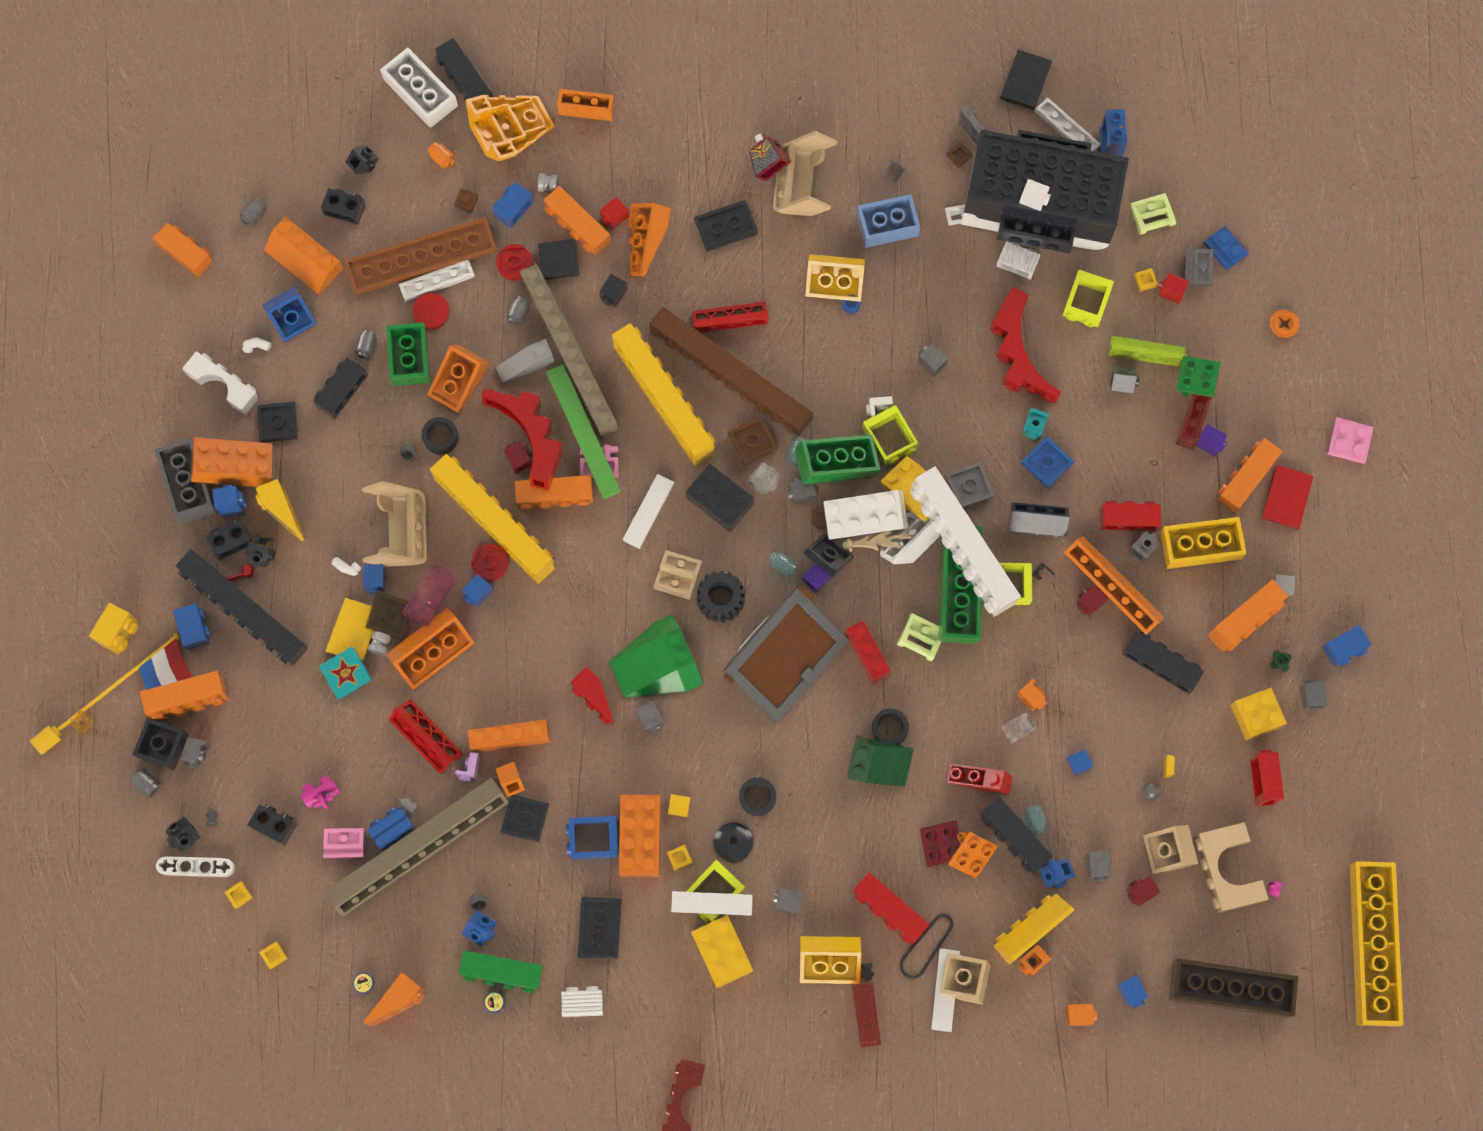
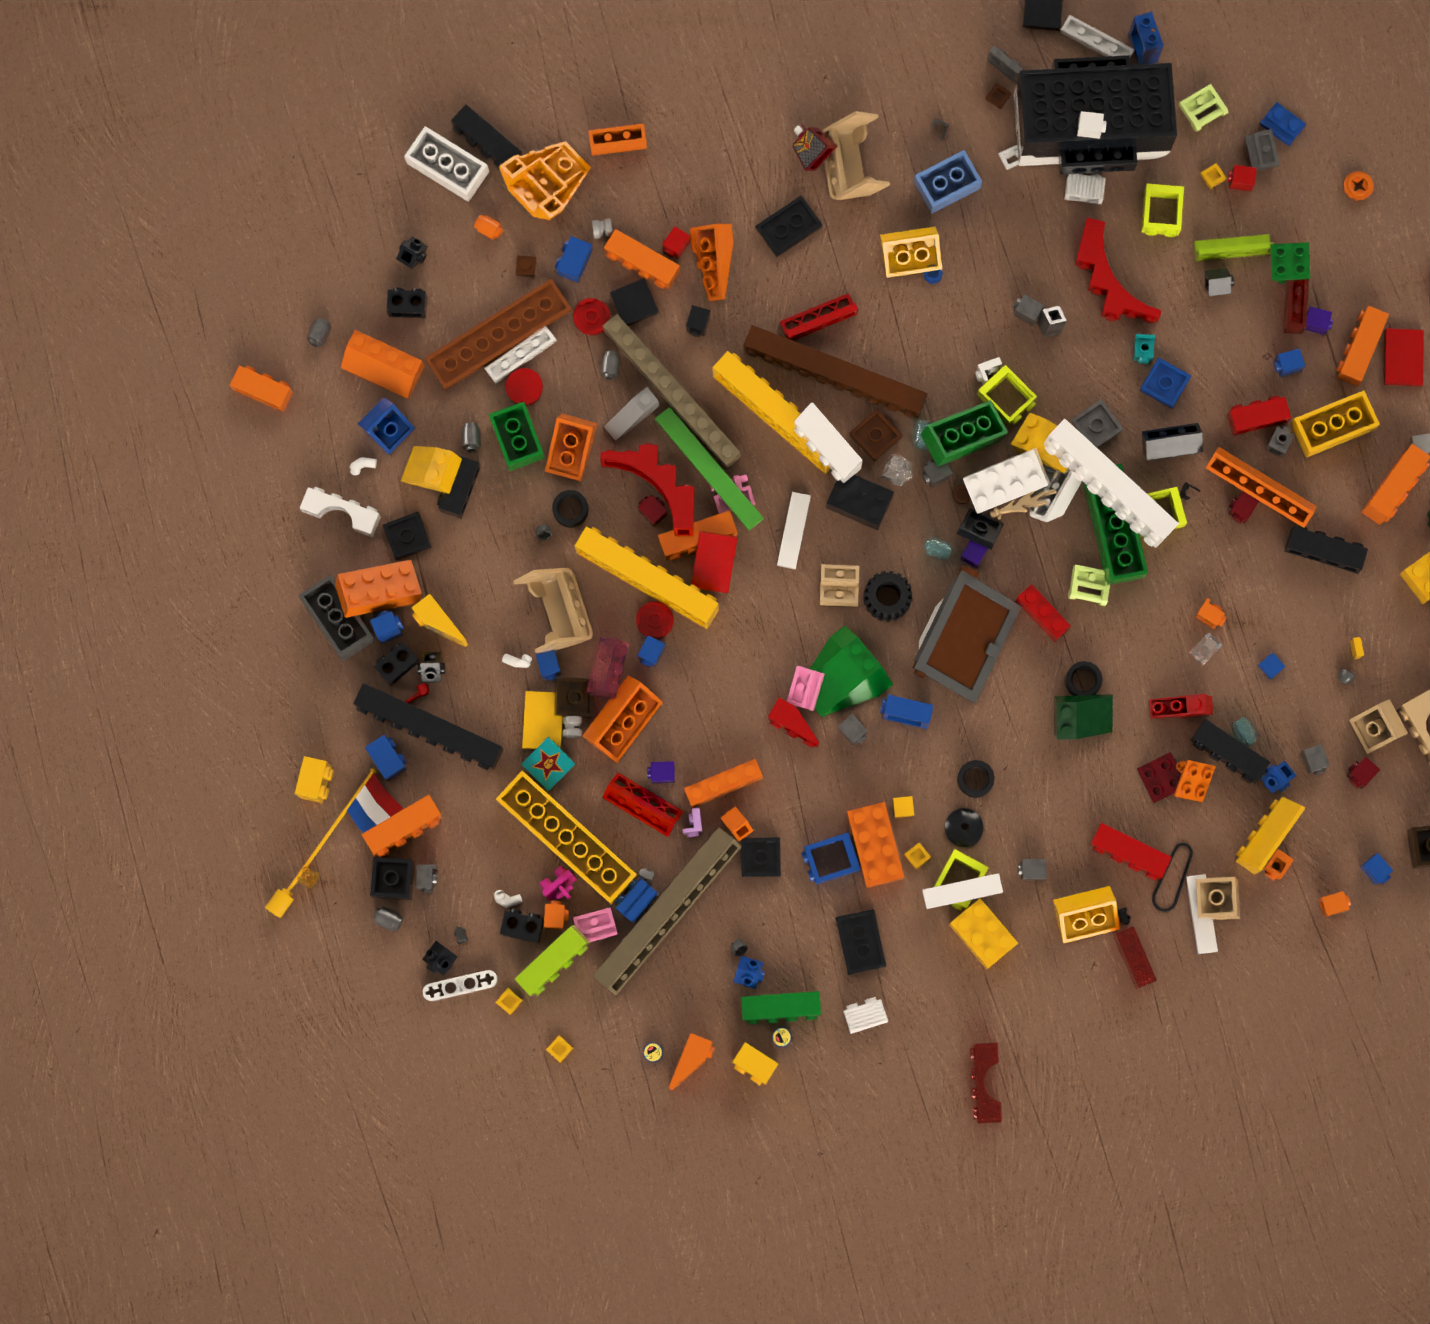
camera: 10 degrees left, 5 degrees up
(265, 795) = (507, 901): none -> white arm
(291, 865) = (552, 960): none -> lime brick
(308, 822) = (555, 915): none -> orange brick
(319, 364) = (432, 468): none -> yellow slope
(340, 749) = (566, 837): none -> yellow brick
(452, 710) = (661, 772): none -> dark purple brick
(458, 1021) = (755, 1064): none -> yellow brick
(561, 520) = (714, 561): none -> red tile
(615, 664) = (805, 688): none -> bright pink plate
(699, 432) = (828, 443): none -> white slope
(707, 712) = (906, 711): none -> blue window
(952, 376) = (1051, 321): none -> flat silver brick
(1173, 473) = (1289, 362): none -> blue brick

